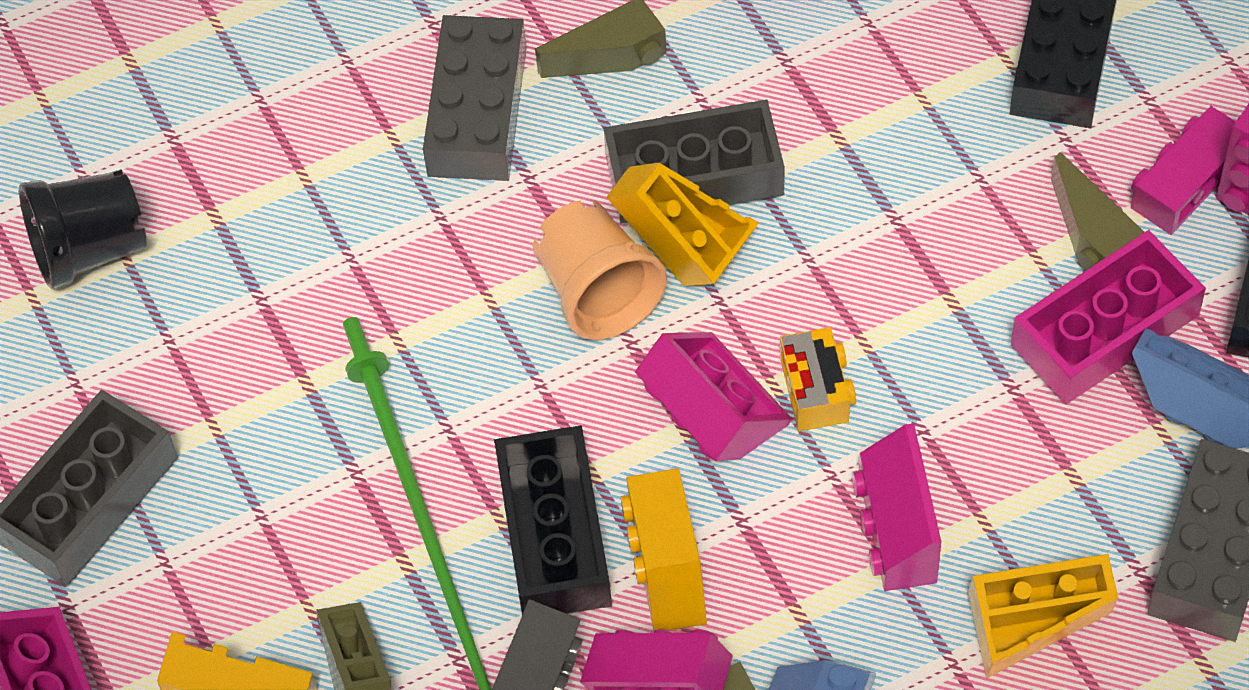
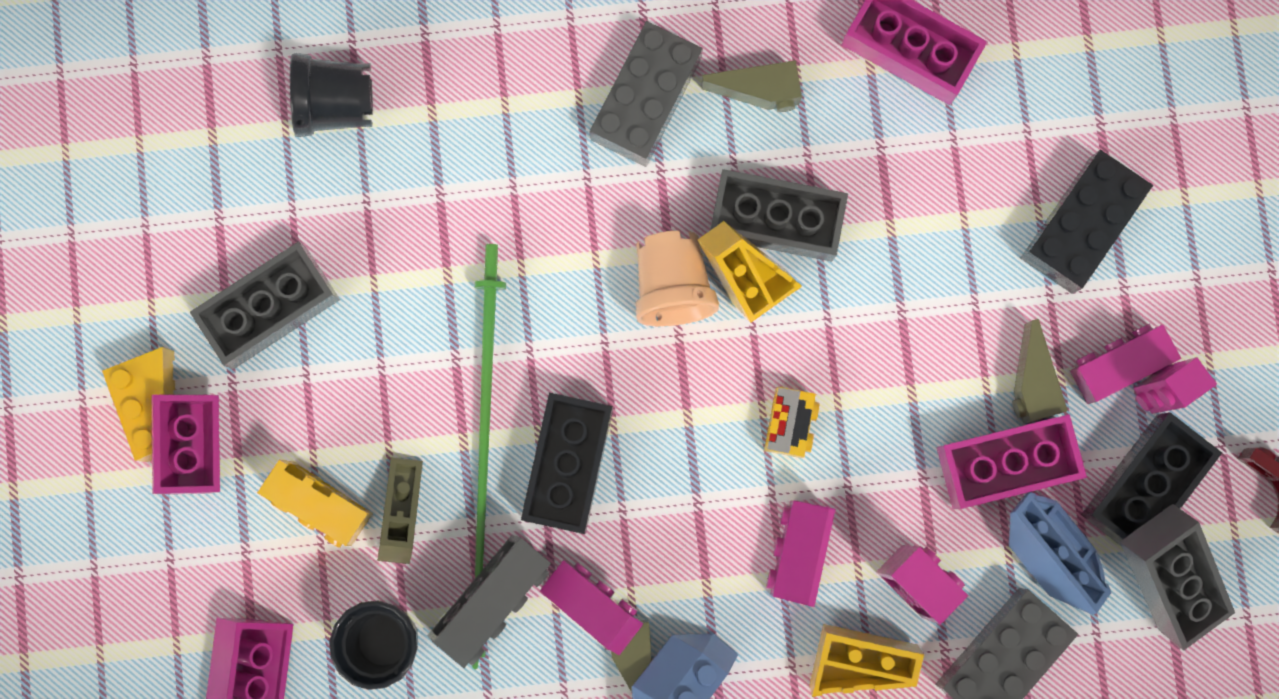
camera: 20 degrees right, 25 degrees up
(666, 549) = (635, 510): yellow wedge -> none
(711, 394) = (715, 405): dark pink slope -> none
(1063, 473) = (922, 583): none -> dark pink brick

